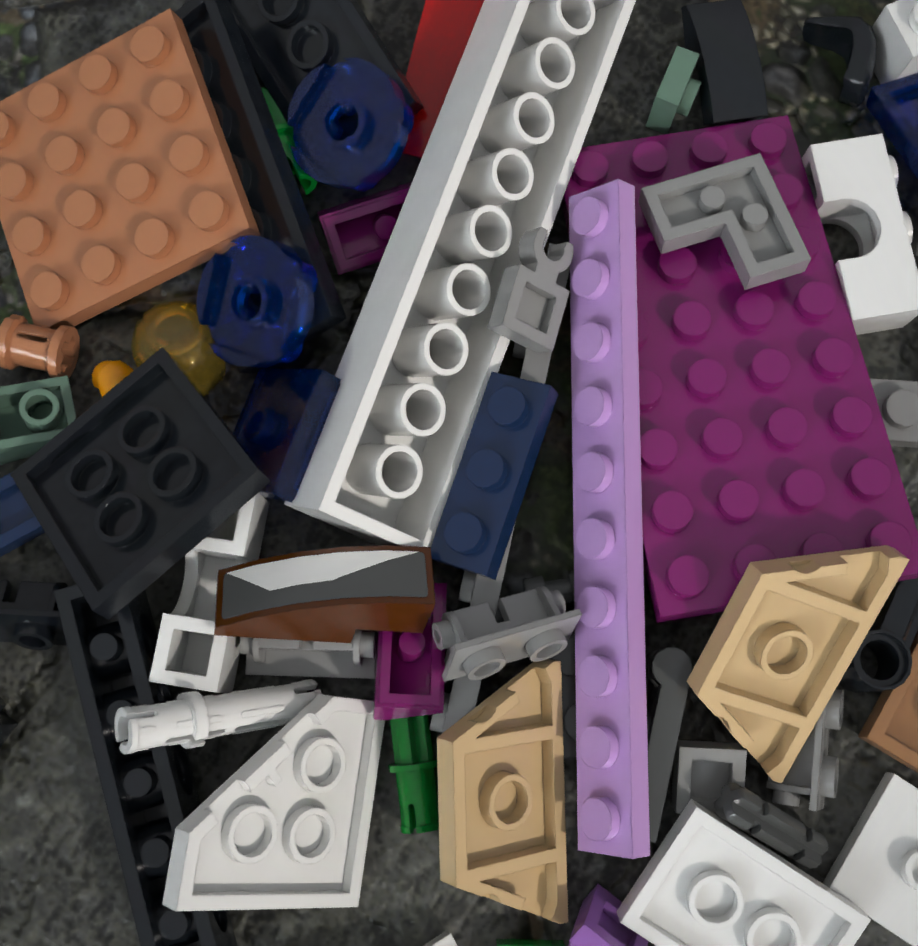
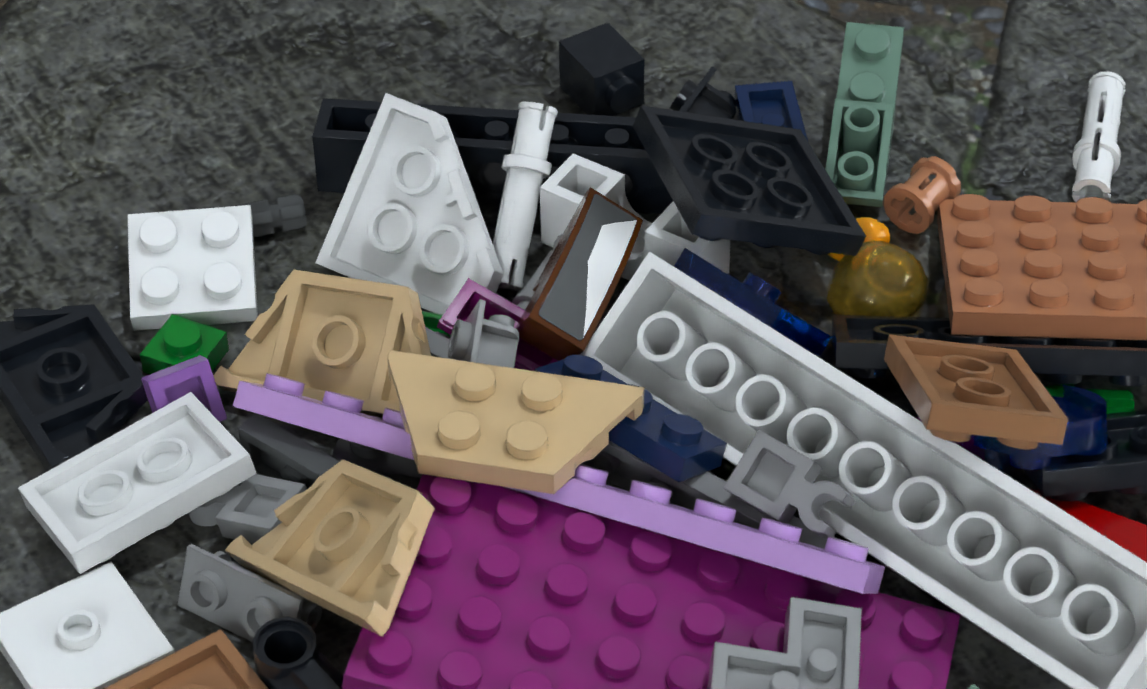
camera: 115 degrees right, 35 degrees down
(286, 302) = (879, 309): clear blue plate -> none
(384, 151) = (975, 392): none -> medium nougat plate
(596, 559) = (505, 421): none -> tan wing
(771, 825) = (194, 526): dark grey axle -> none

